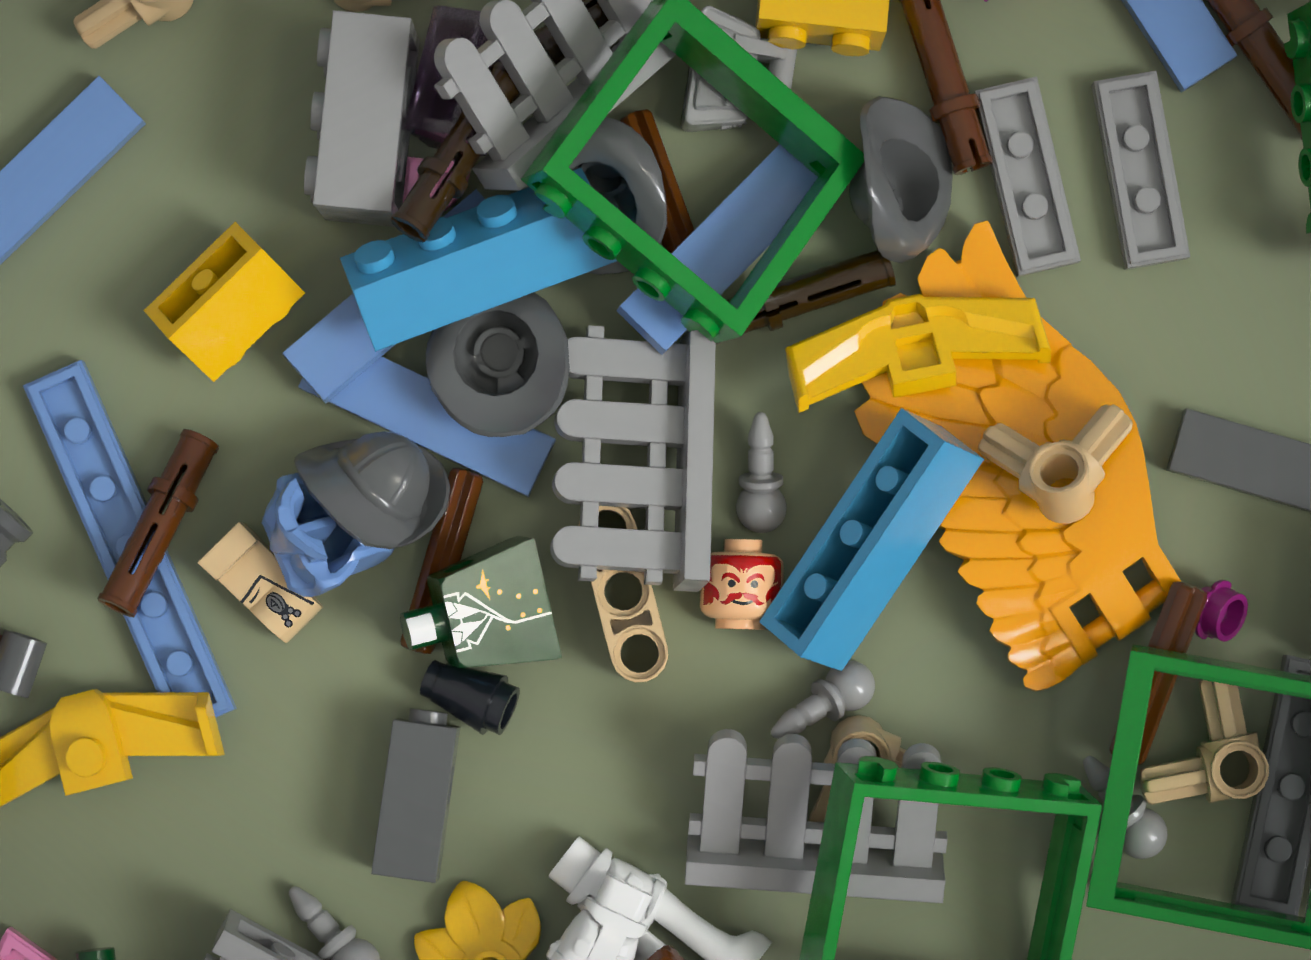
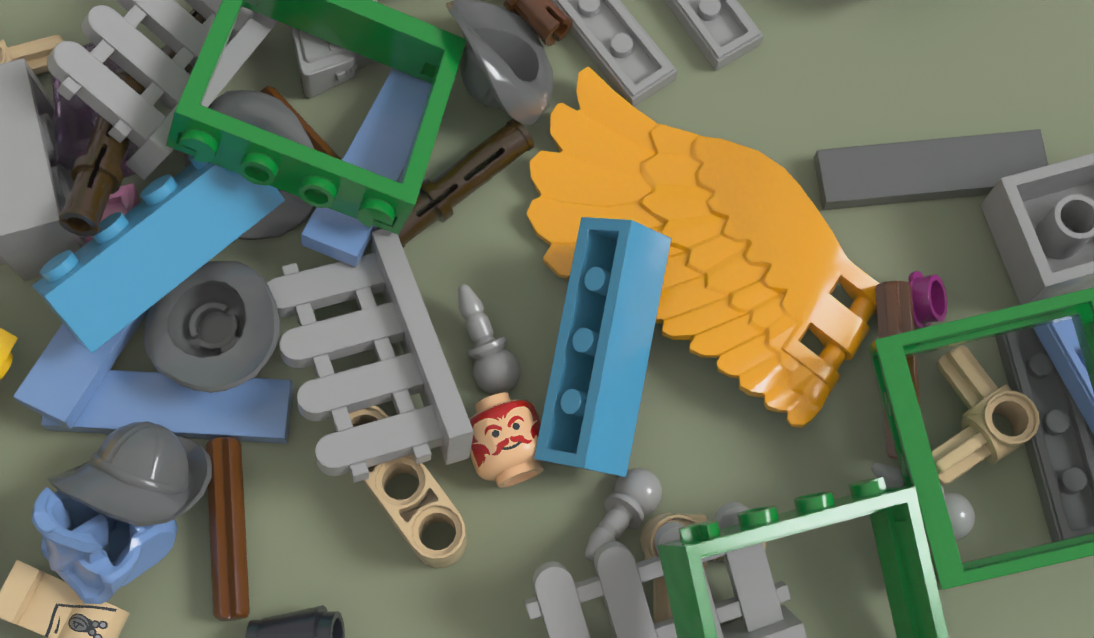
camera: 25 degrees left, 15 degrees down
(487, 609) = (282, 549): torso -> none
(915, 344) = (570, 178): yellow plate -> none
(1044, 464) = (740, 223): tan axle -> none

